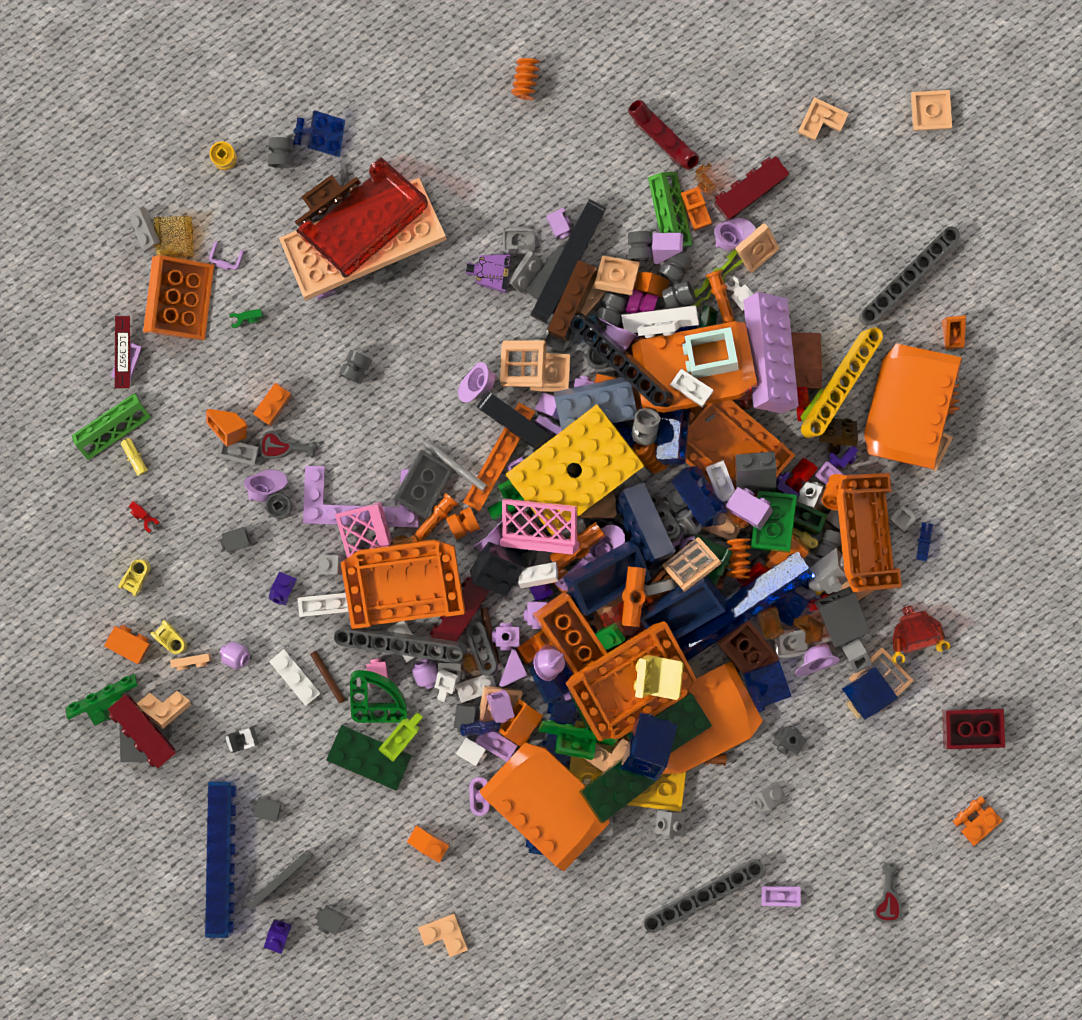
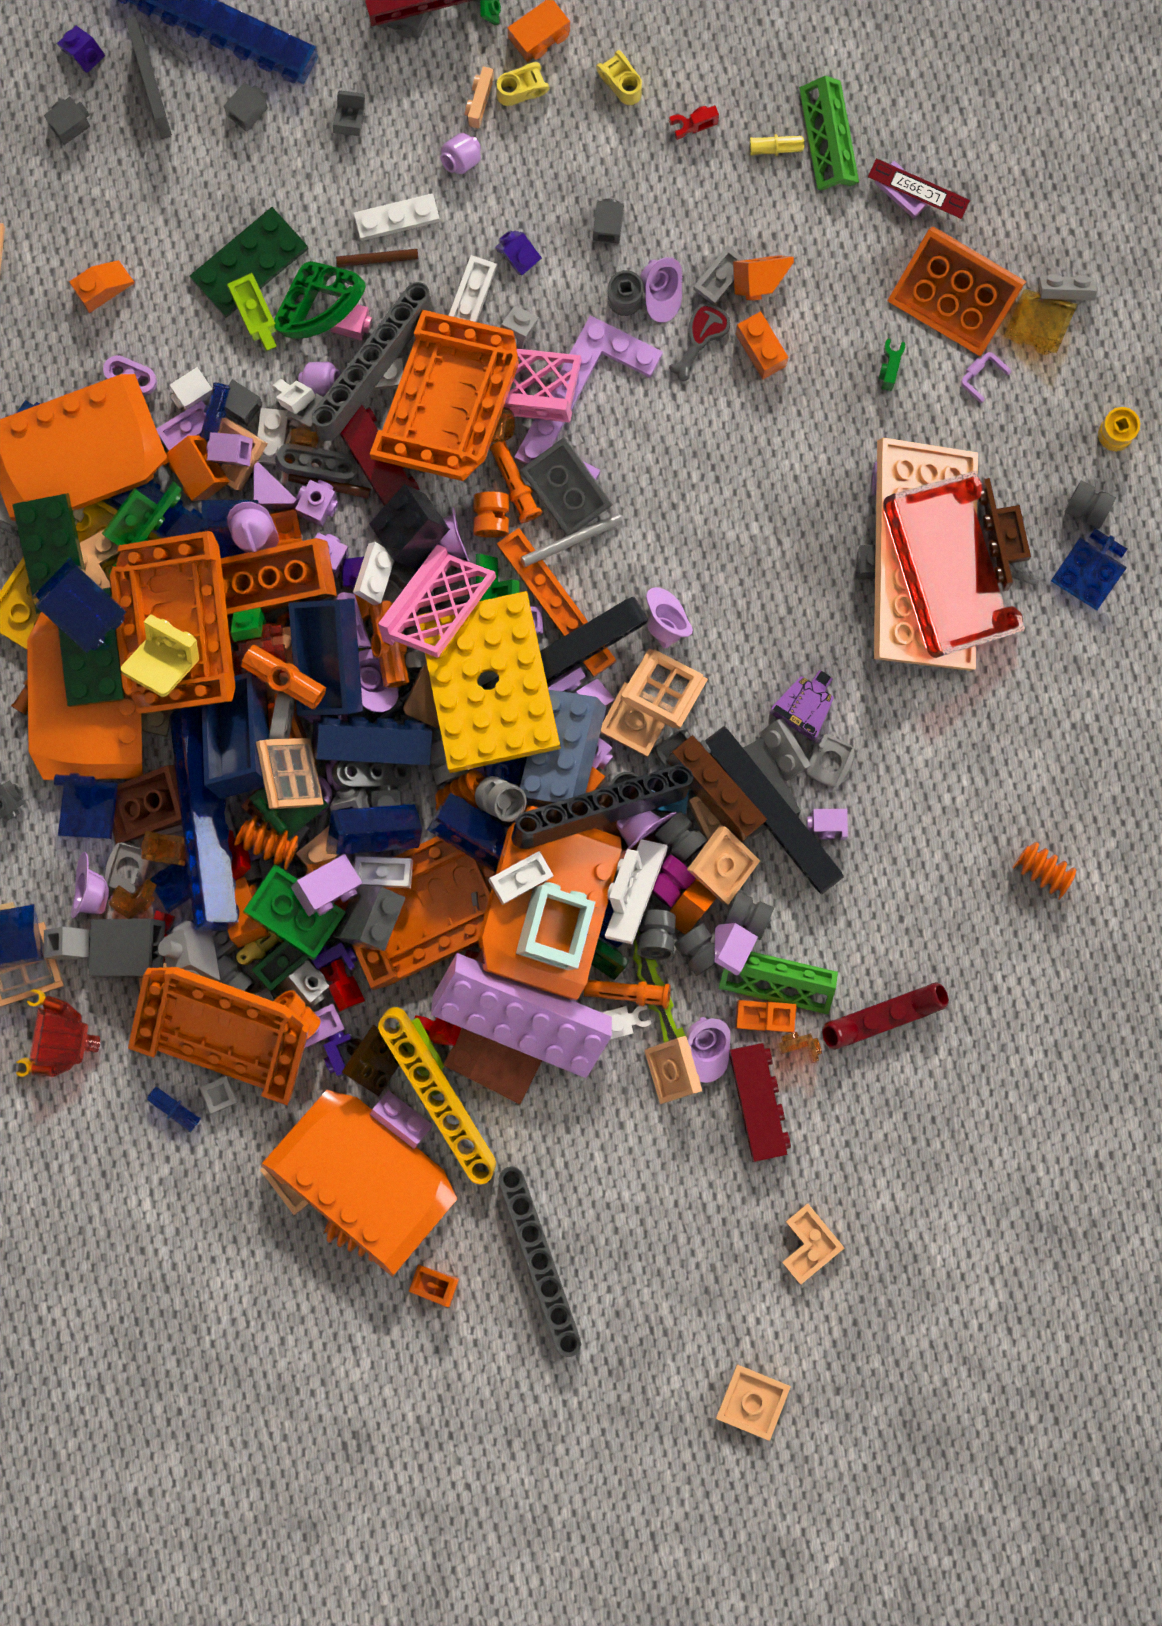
camera: 115 degrees right, 5 degrees down
(164, 712) = (430, 35): light nougat plate -> none
(357, 360) = (768, 478): dark grey wheel -> none
(864, 400) = (401, 1119): none -> lavender plate

